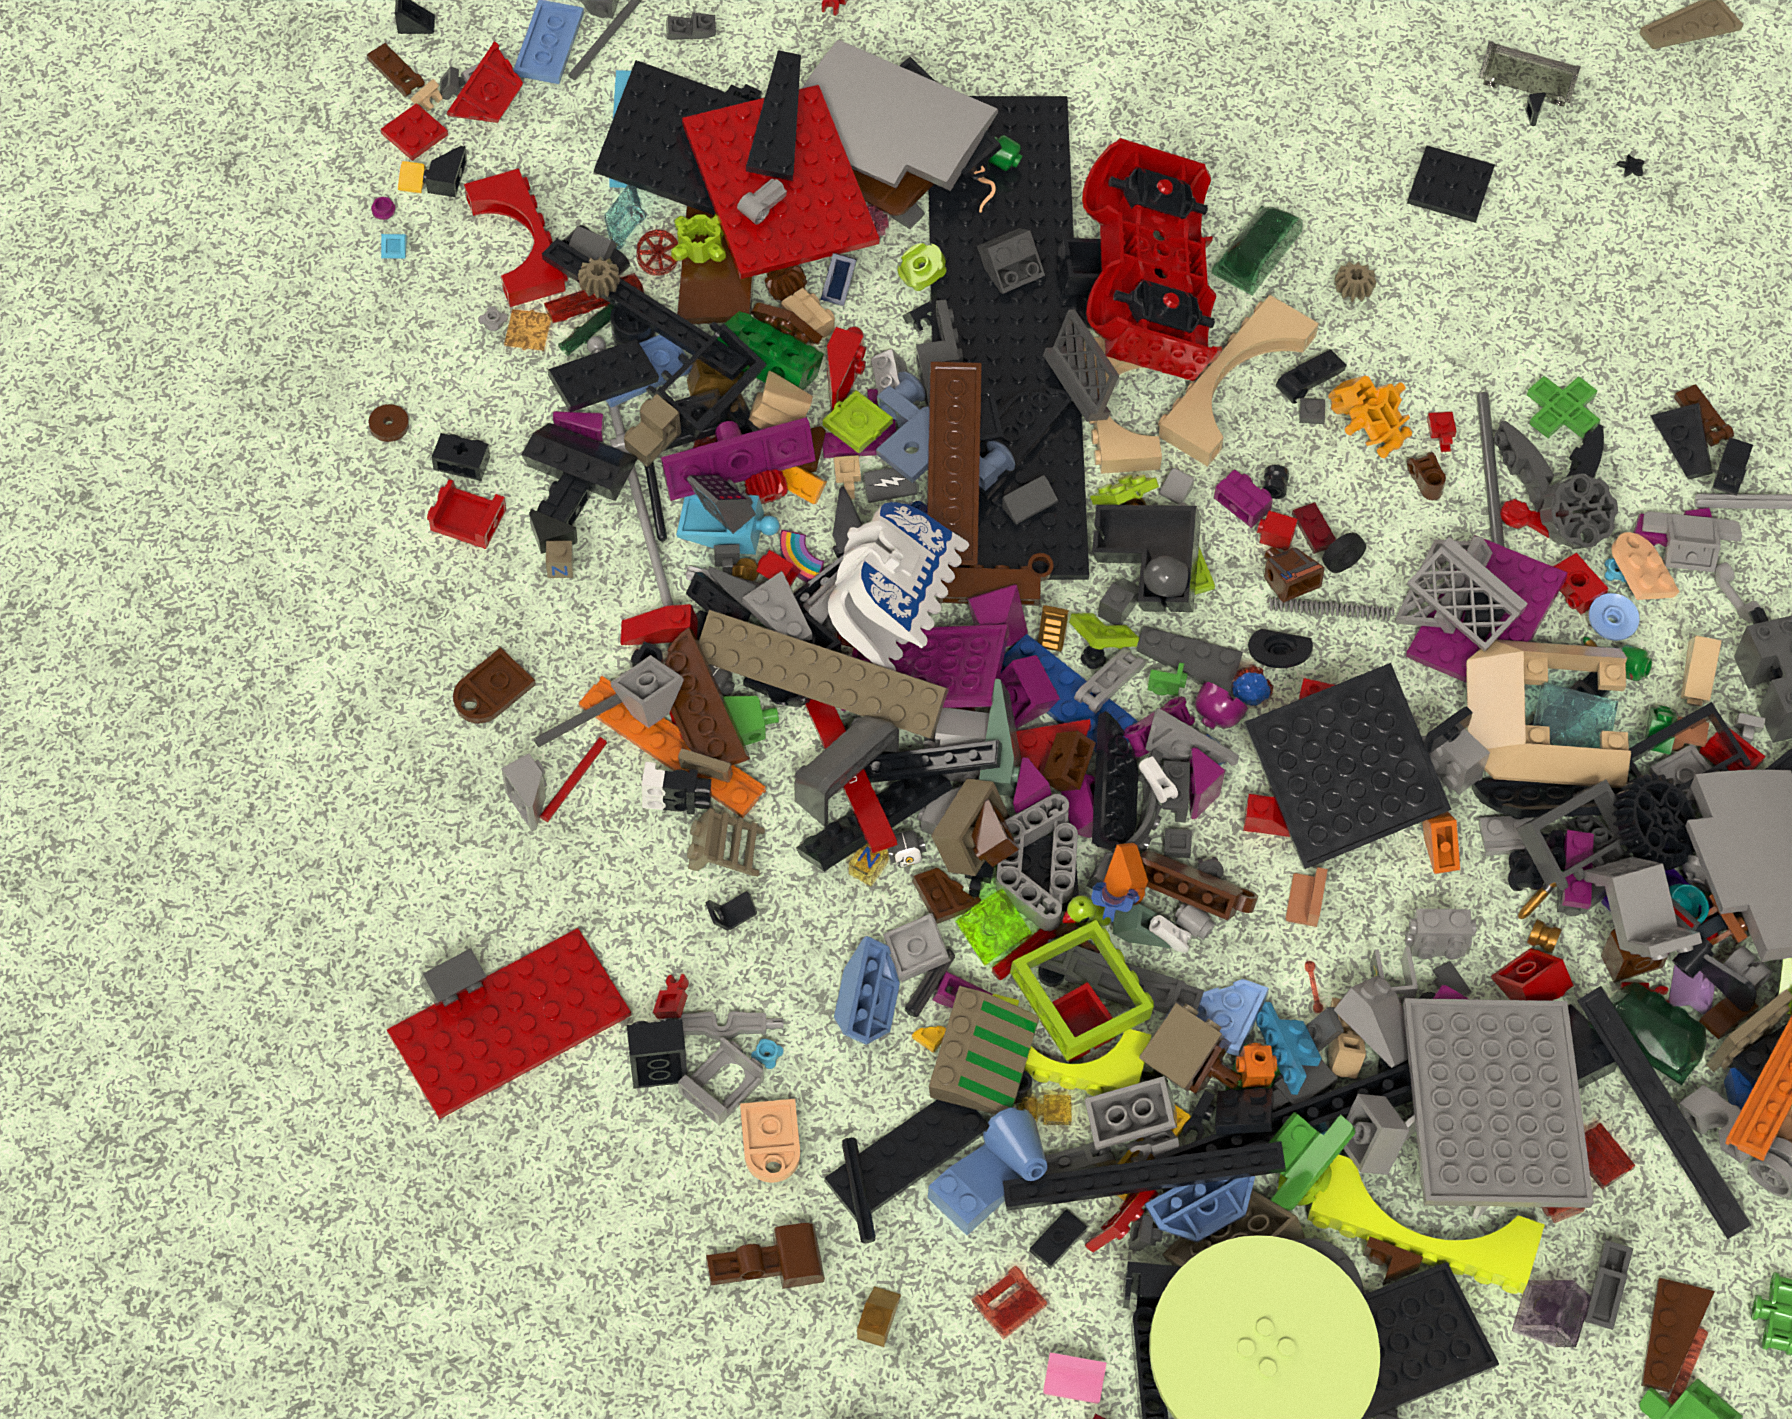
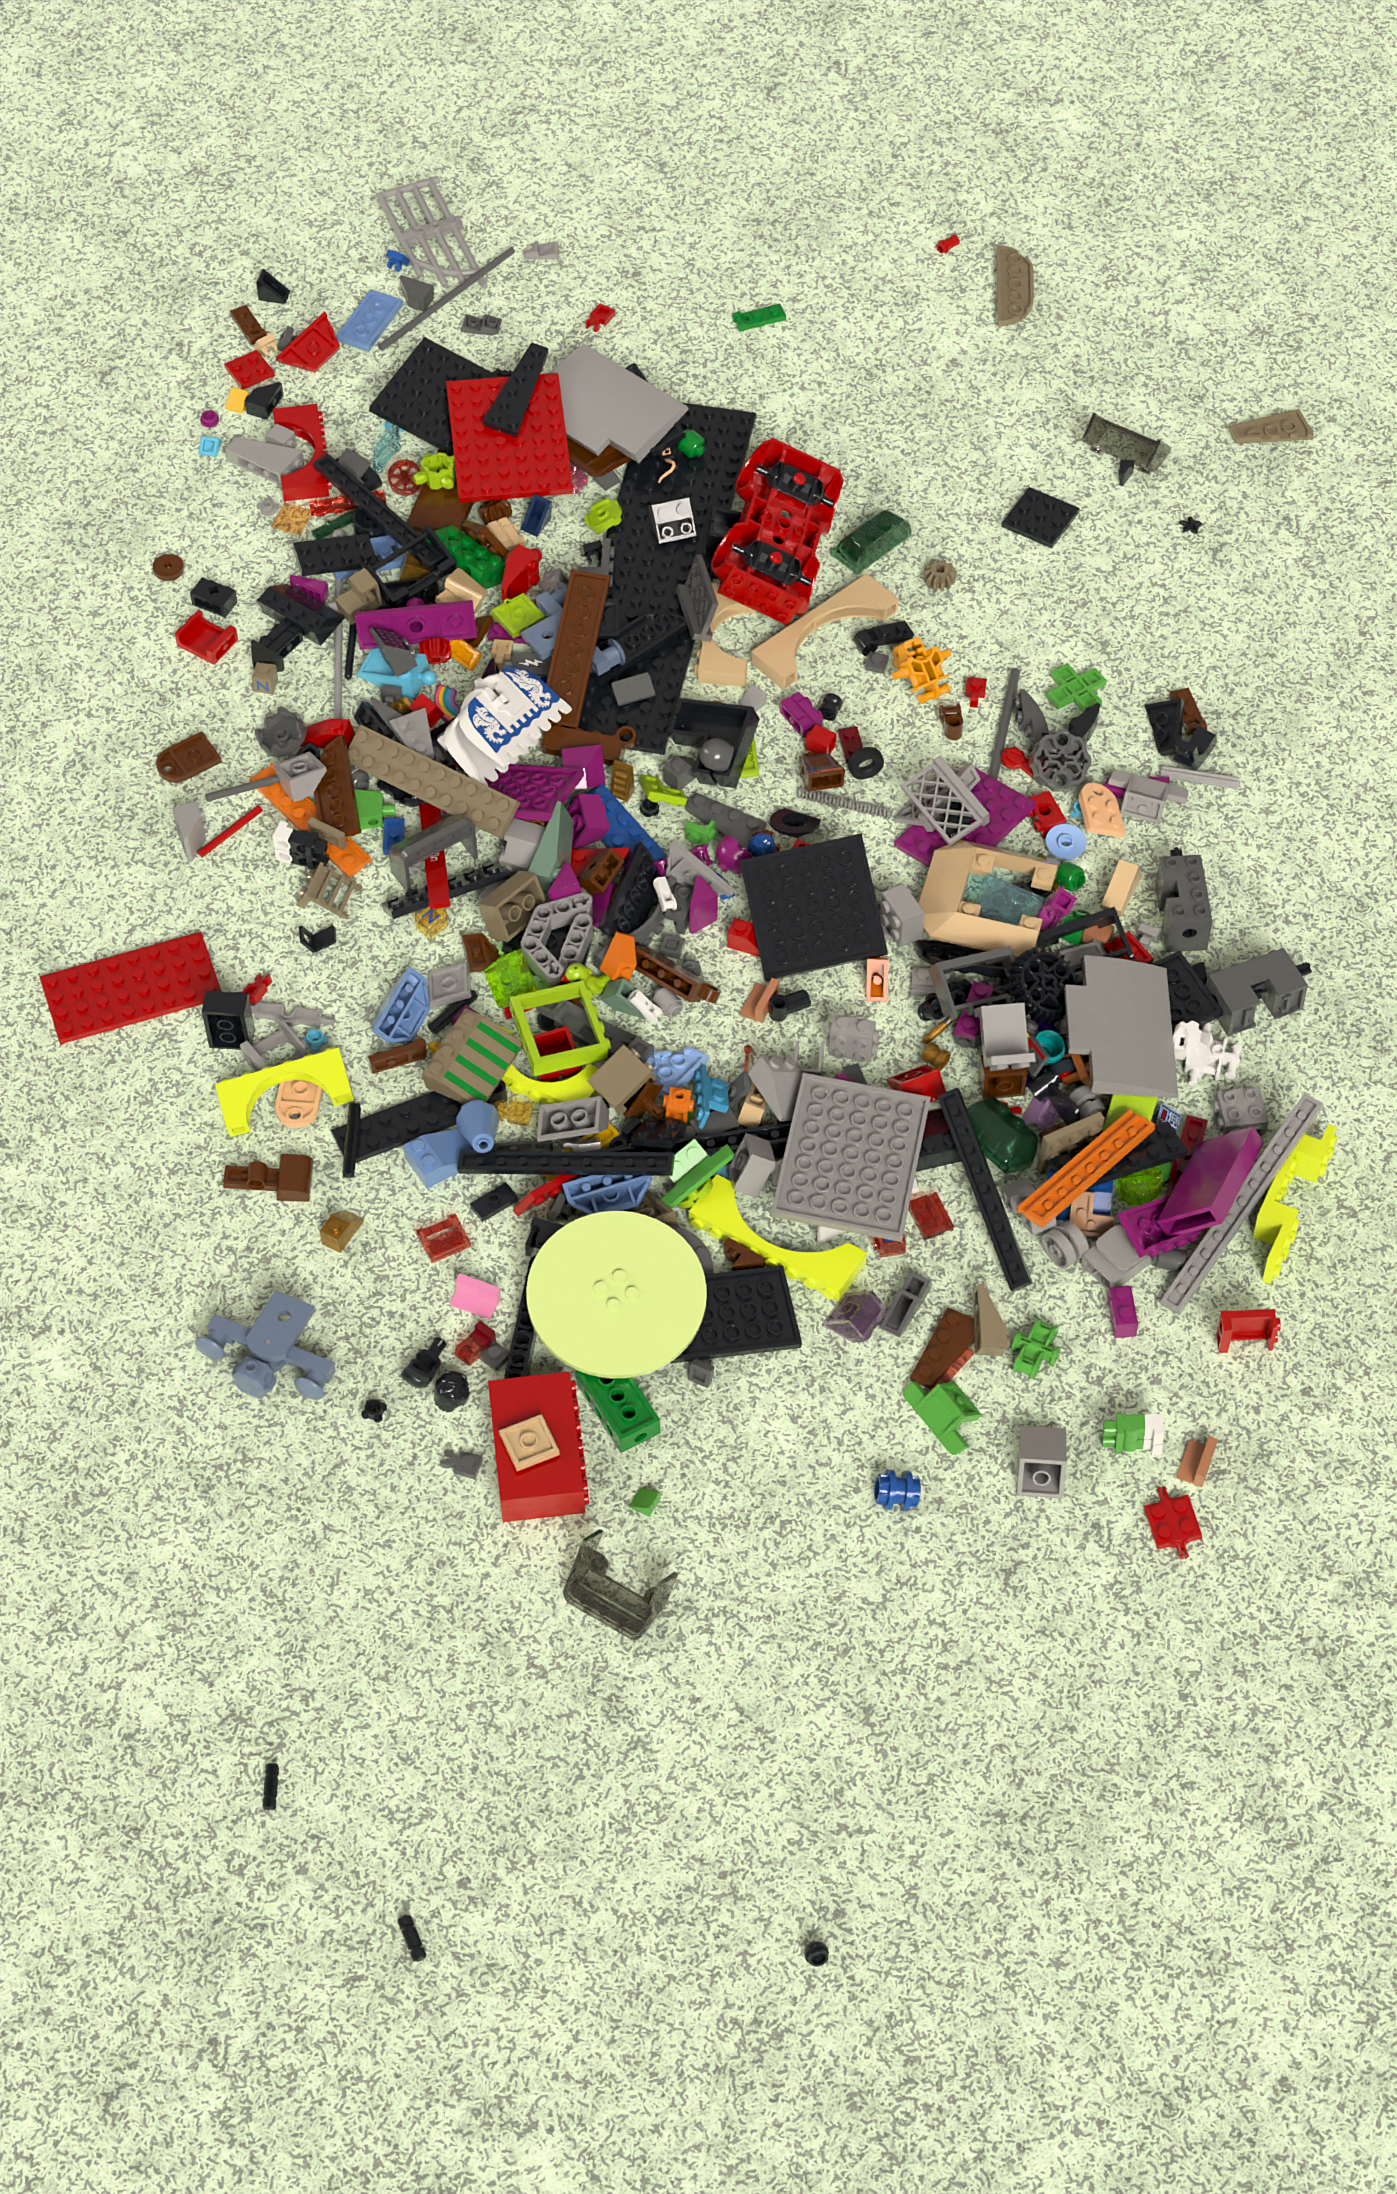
camera: 15 degrees right, 5 degrees down
(453, 978) = (95, 946): dark grey slope -> none
(471, 254) = (264, 458): none -> light grey slope
(484, 223) = (281, 436): none -> light grey brick
(597, 621) = (275, 727): none -> dark grey plate
(599, 277) = (348, 483): dark tan gear -> none
(758, 205) = (483, 449): light grey piece -> none
(785, 750) = (393, 833): none -> blue plate
(797, 1100) = (240, 1094): none -> neon yellow arch
(880, 1058) = (398, 1056): none -> reddish brown plate
(908, 850) = (462, 916): dark grey head -> none
(935, 761) = (496, 856): black tile -> none
(992, 836) = (524, 911): reddish brown slope -> none
(1103, 898) = (595, 966): blue piece -> none
(1109, 679) = (655, 823): light grey plate -> none
(1124, 490) = (712, 691): lime plate -> none
(1345, 897) = (783, 1005): none -> black piece
(1448, 730) = (894, 889): black plate -> none
(1638, 710) = (1055, 908): none -> magenta slope
(1720, 1297) = (989, 1327): none -> dark tan slope
(1724, 575) = (1165, 827): light grey bar -> none

